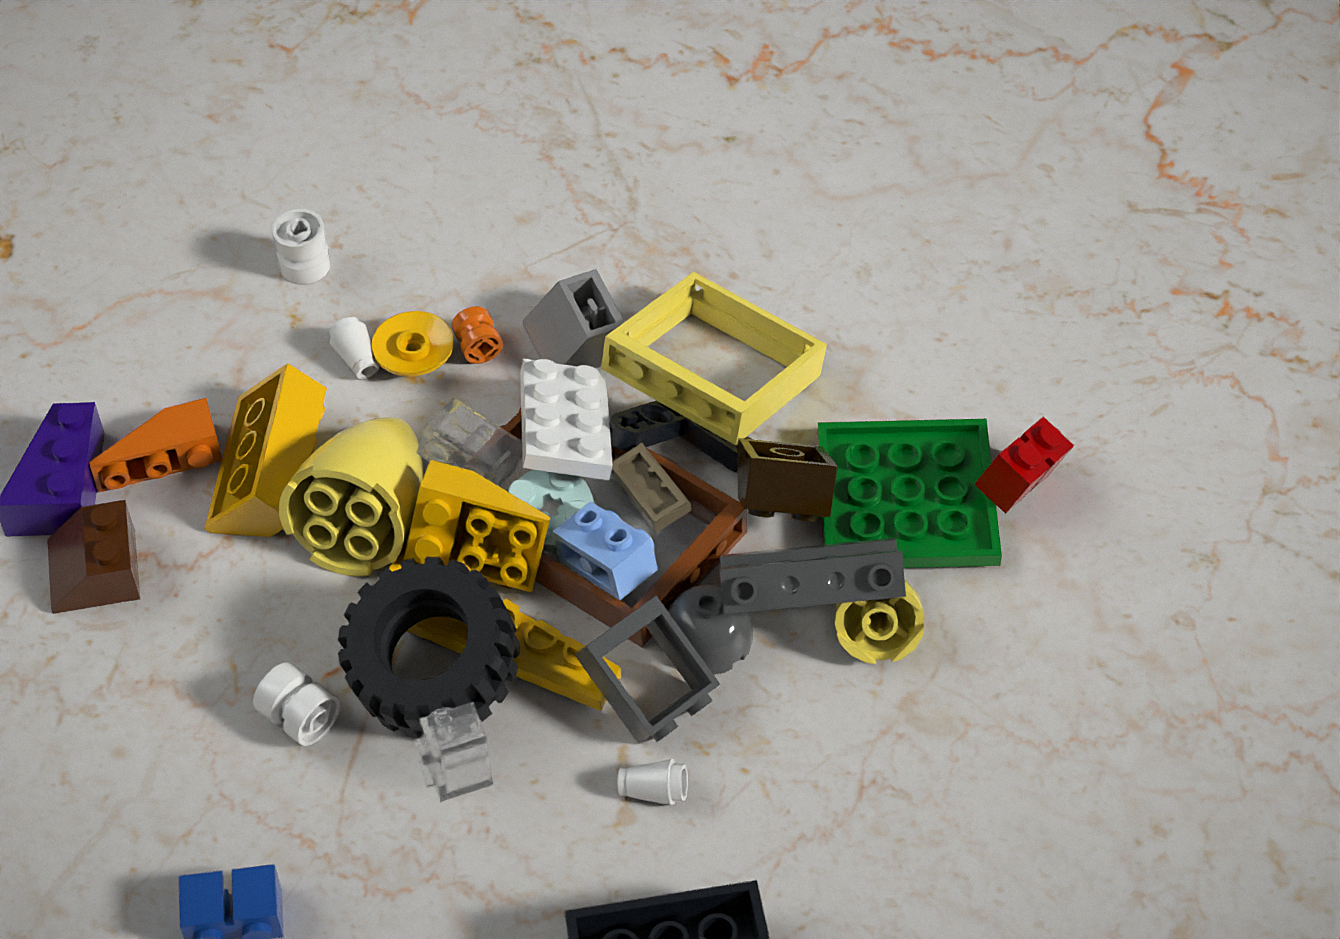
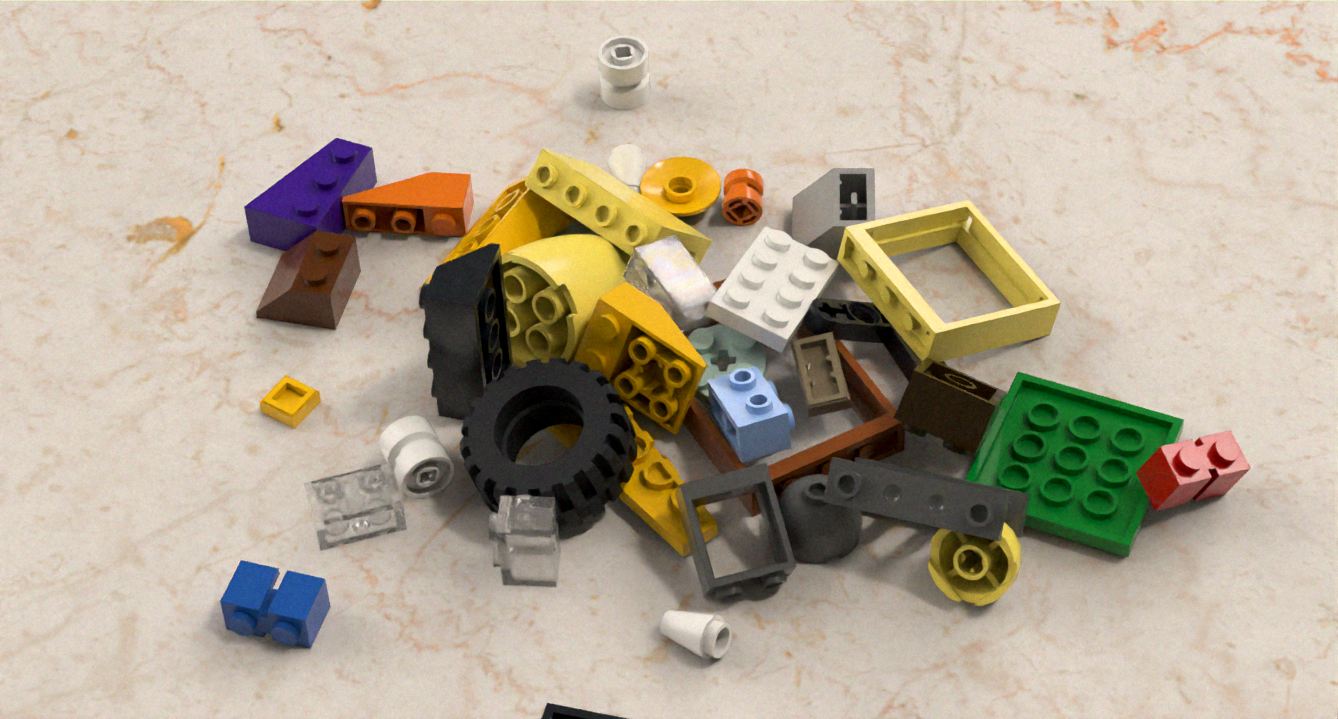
camera: 25 degrees right, 5 degrees down
(133, 690) = (290, 401): none -> yellow tile
(261, 776) = (354, 505): none -> clear brick
(299, 566) = (466, 328): none -> black slope
(365, 387) = (608, 205): none -> light yellow panel

